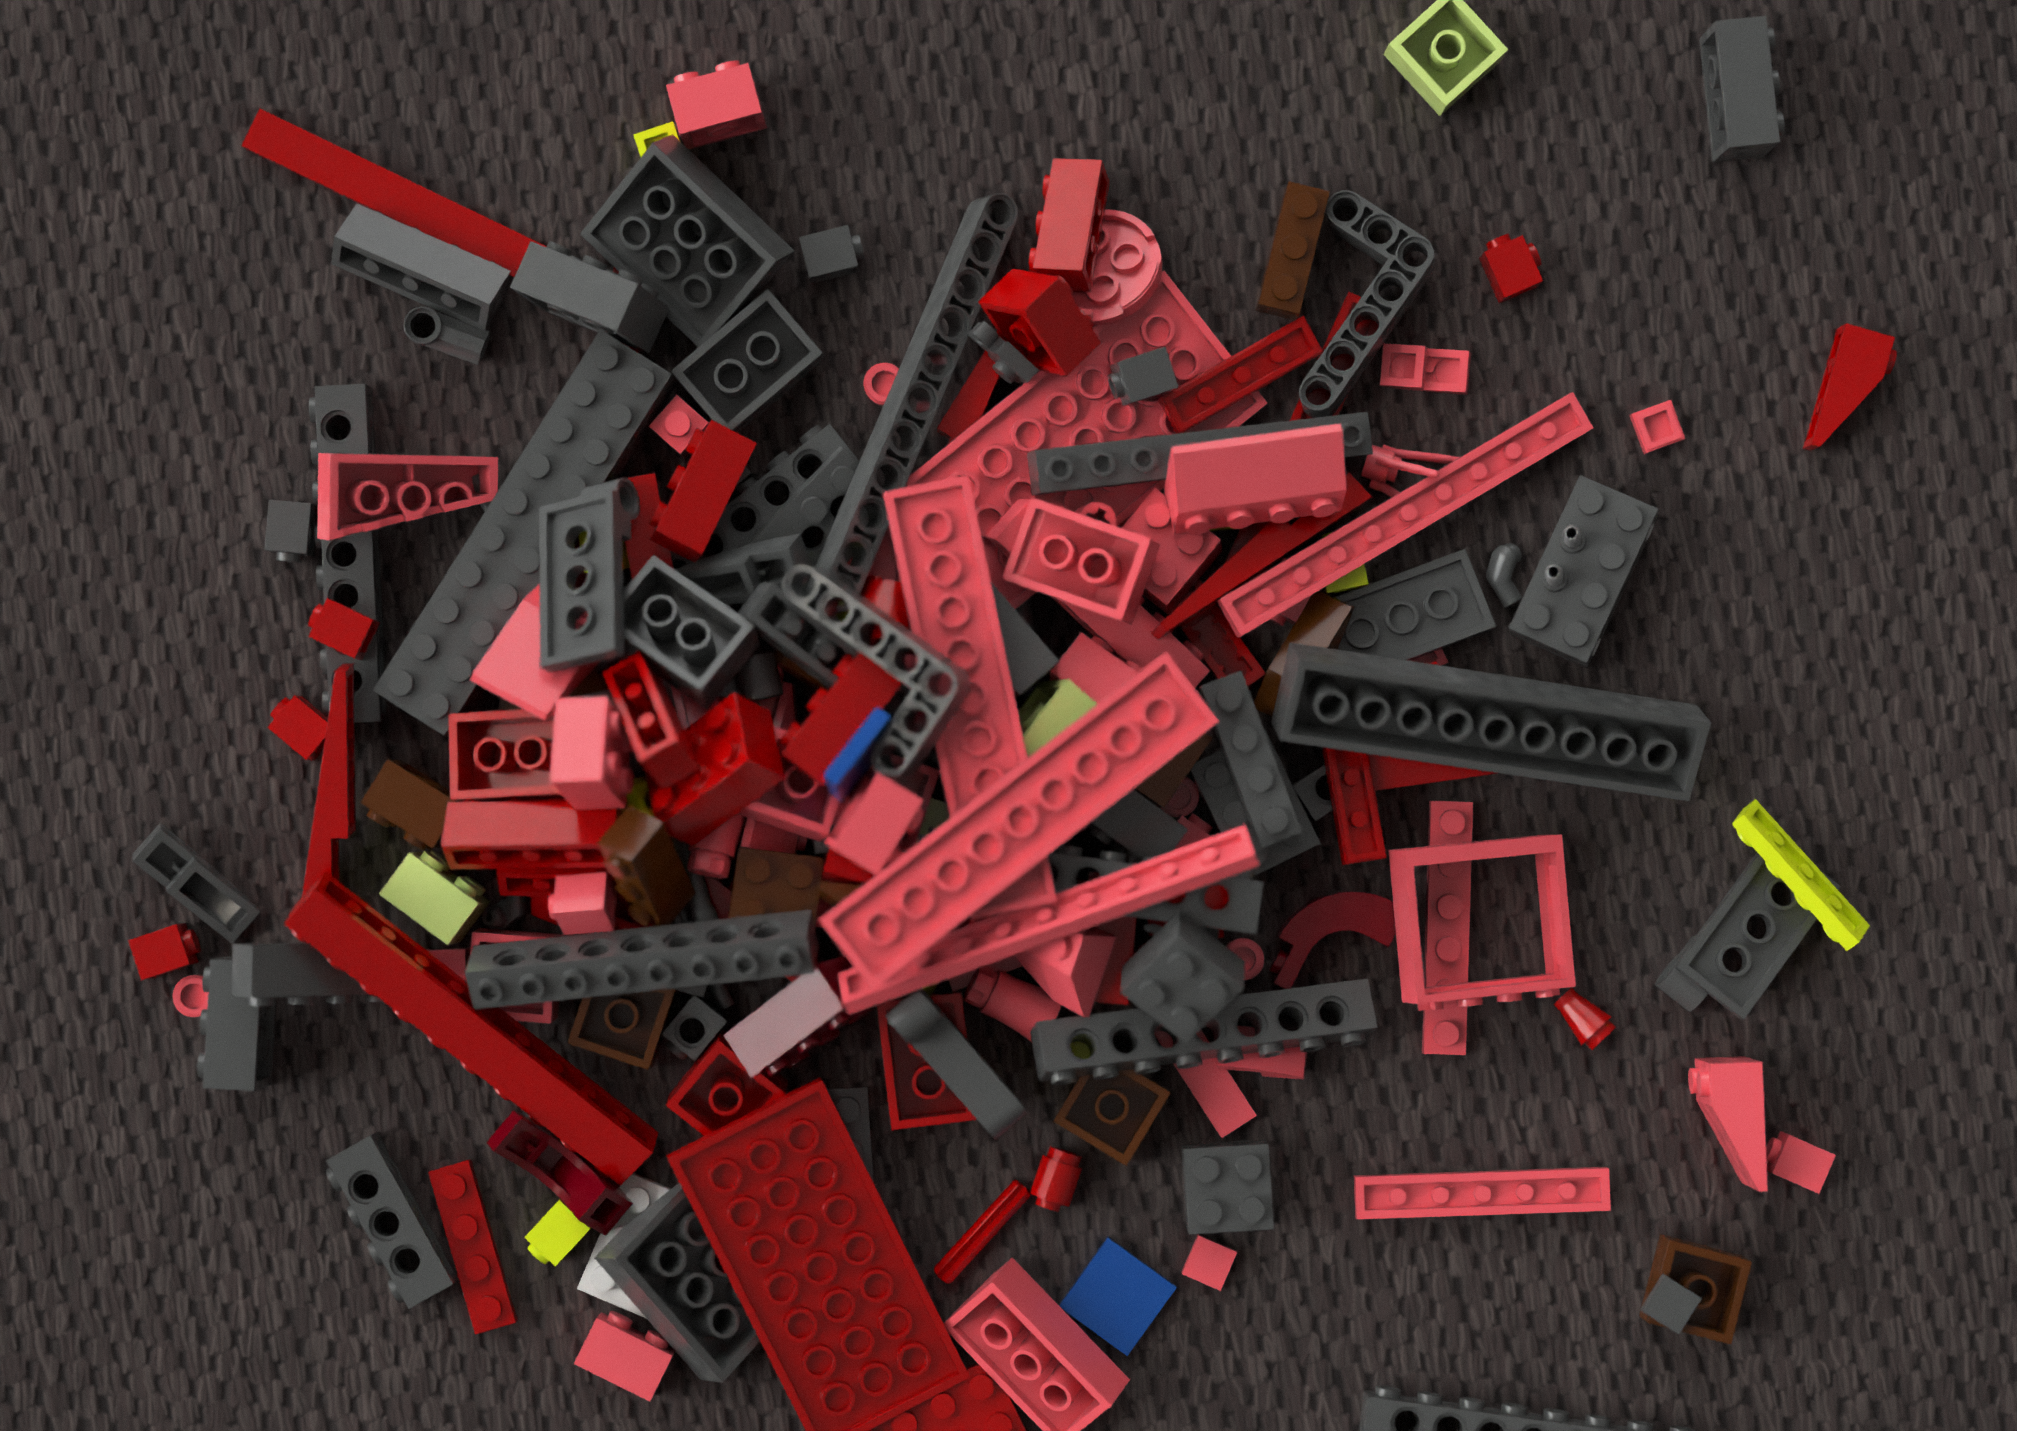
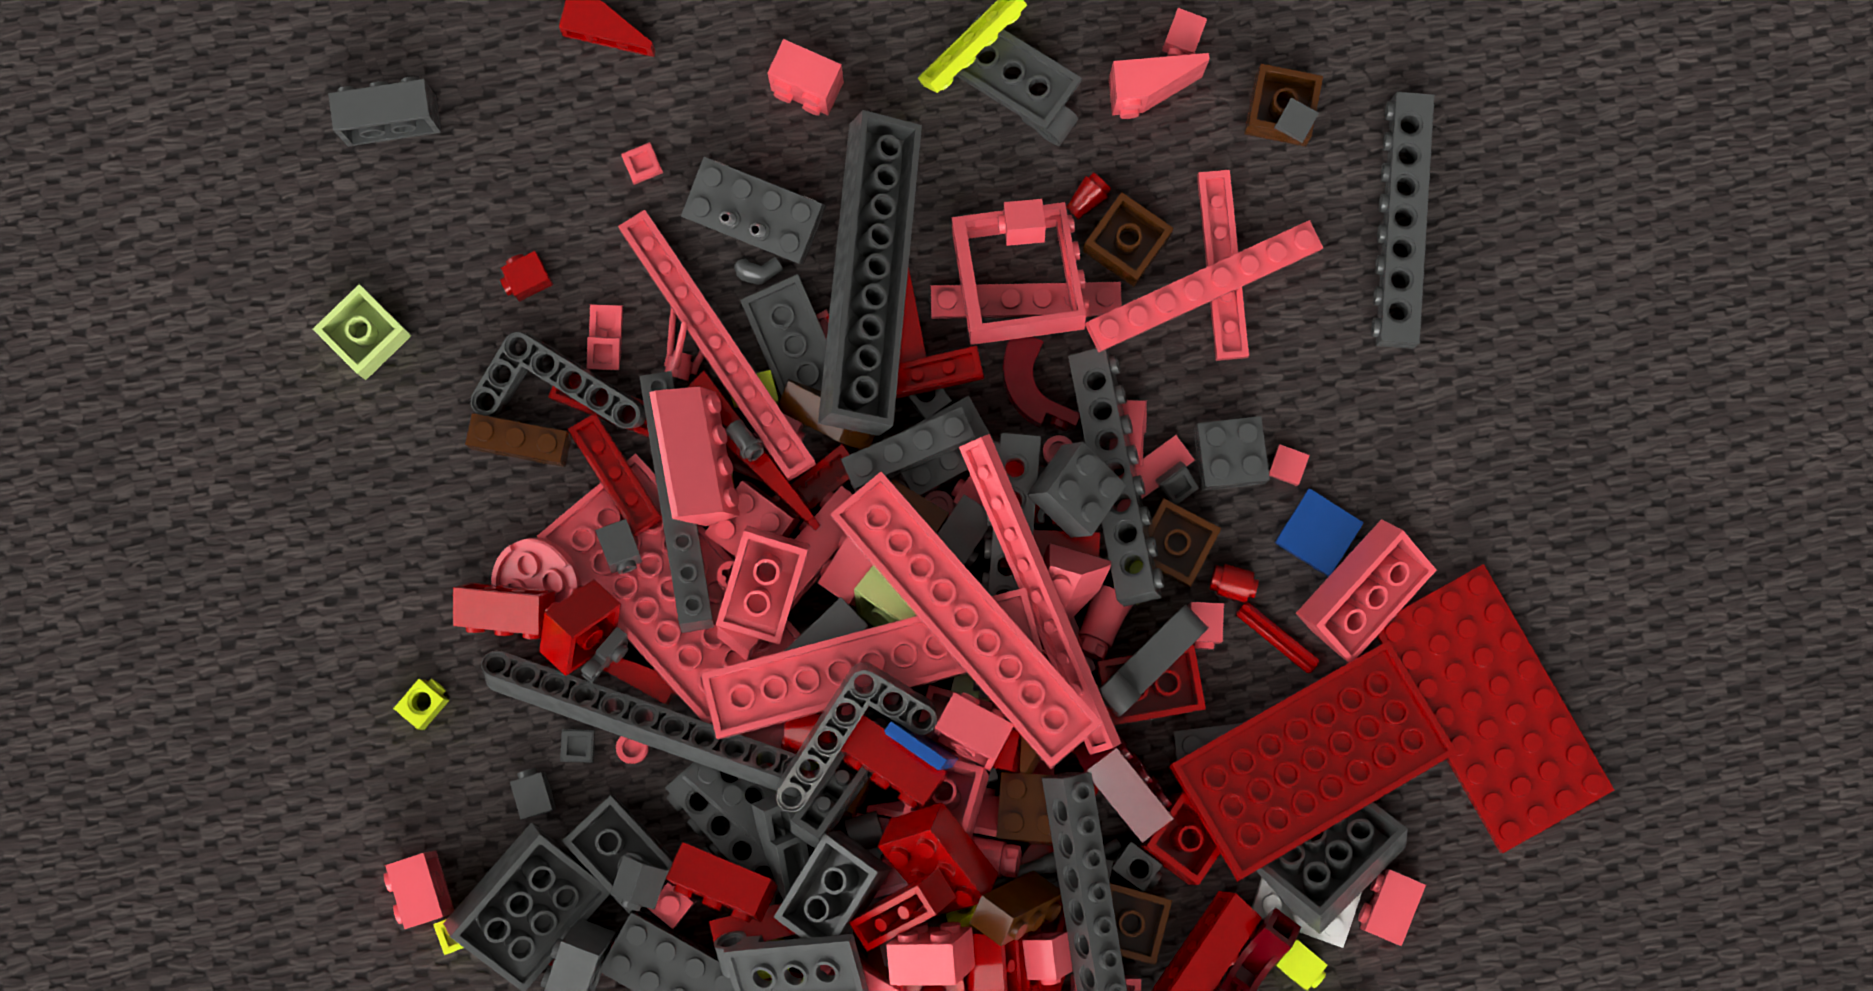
camera: 95 degrees left, 5 degrees down
(706, 384) = (638, 883): none -> dark grey brick
(890, 313) = (577, 745): none -> dark grey tile
(951, 98) = (408, 707): none -> neon yellow brick
(1011, 1146) = (1212, 615): none -> coral brick
(1191, 1112) = (1177, 483): none -> dark grey tile
(1264, 552) = (749, 446): none -> dark grey pin
(1452, 1165) = (1203, 286): none -> coral plate
(1521, 1067) = (1127, 239): none -> reddish brown brick
(1549, 928) = (1023, 222): none -> coral brick
(1760, 648) = (805, 78): none -> coral brick

